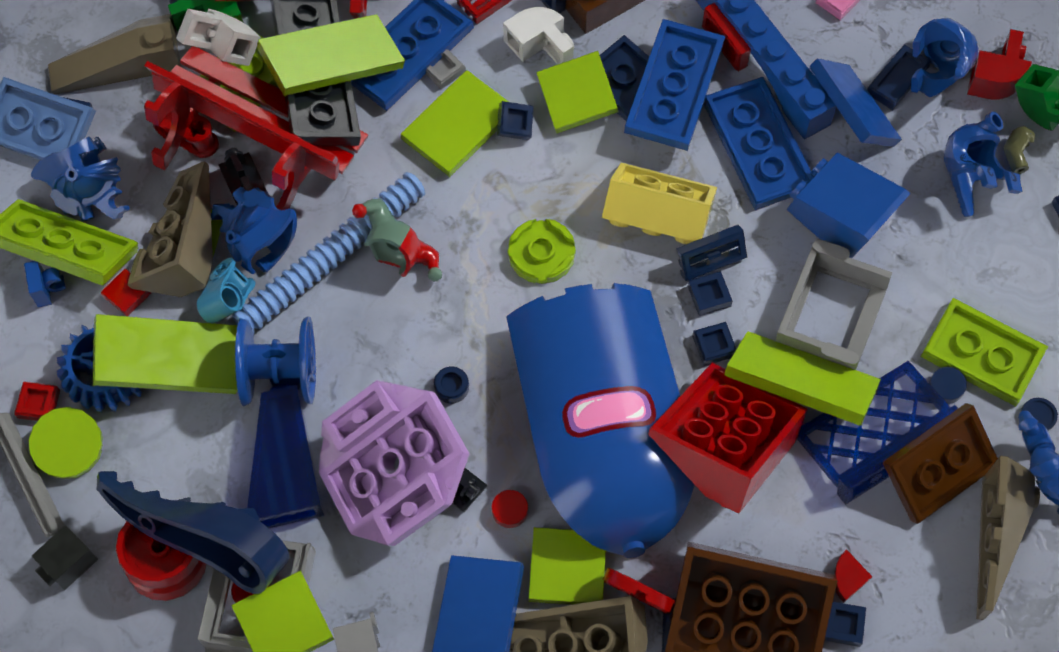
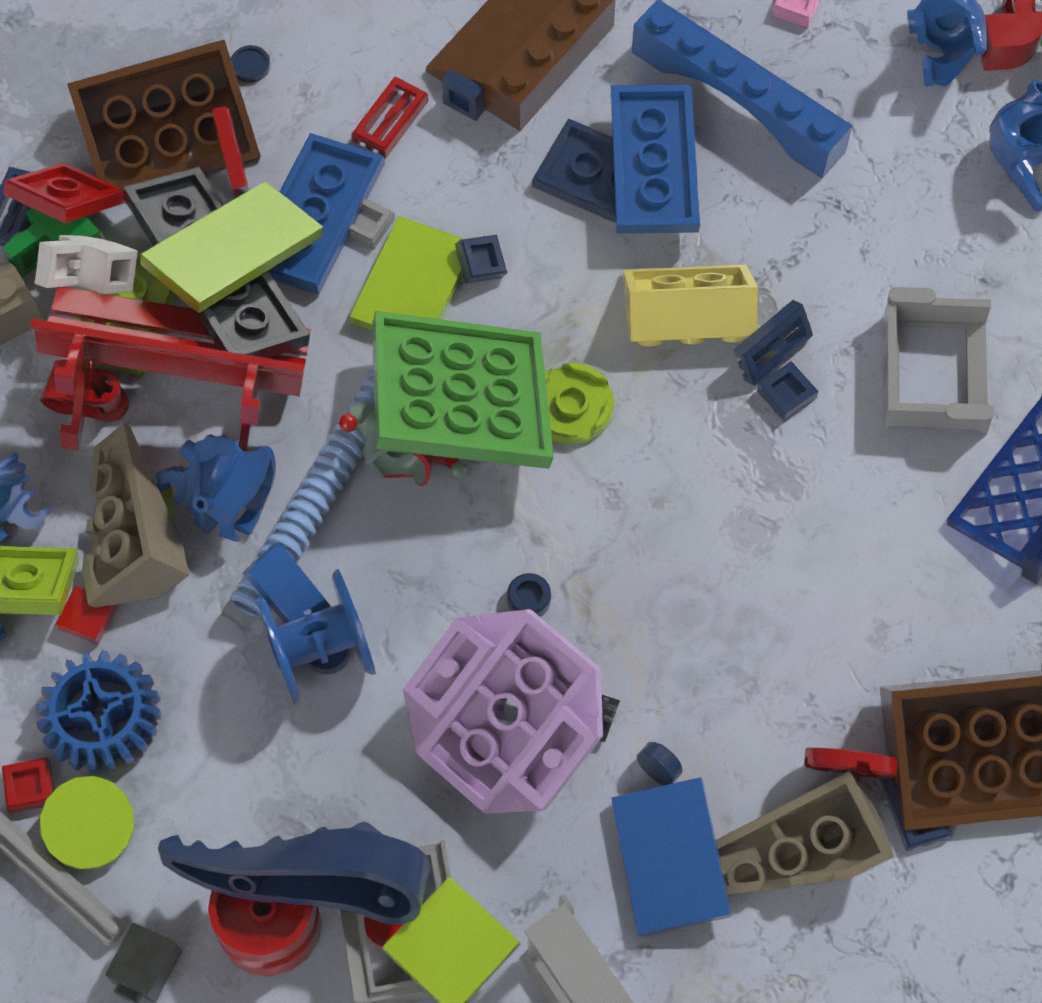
camera: 20 degrees left, 0 degrees up
(164, 354) = (172, 673): lime tile -> none
(224, 292) = (214, 574): dark azure piece -> none
(240, 171) = (172, 426): black hinge -> none
(271, 315) = (284, 584): none -> blue tile
(283, 467) = (370, 758): clear blue slope -> none
(454, 214) = (460, 390): none -> bright green plate
(497, 542) = (659, 763): none -> dark blue tile
(509, 508) = (657, 719): red tile -> none
(538, 30) = (467, 142): white brick -> none
(565, 568) = (751, 764): lime tile -> none
(577, 92) = (541, 202): lime tile -> none
(592, 391) = (732, 569): blue panel -> none
(714, 343) = (816, 447): dark blue tile -> none
(728, 435) = (885, 546): red slope -> none
(734, 46) = (706, 95): red tile -> none
(758, 141) = (774, 198): blue tile -> none
(803, 378) = (937, 453): lime tile -> none
(845, 202) = (907, 235): blue slope -> none
(855, 103) = (868, 117): blue tile -> none
(896, 77) = (900, 74): dark blue tile -> none

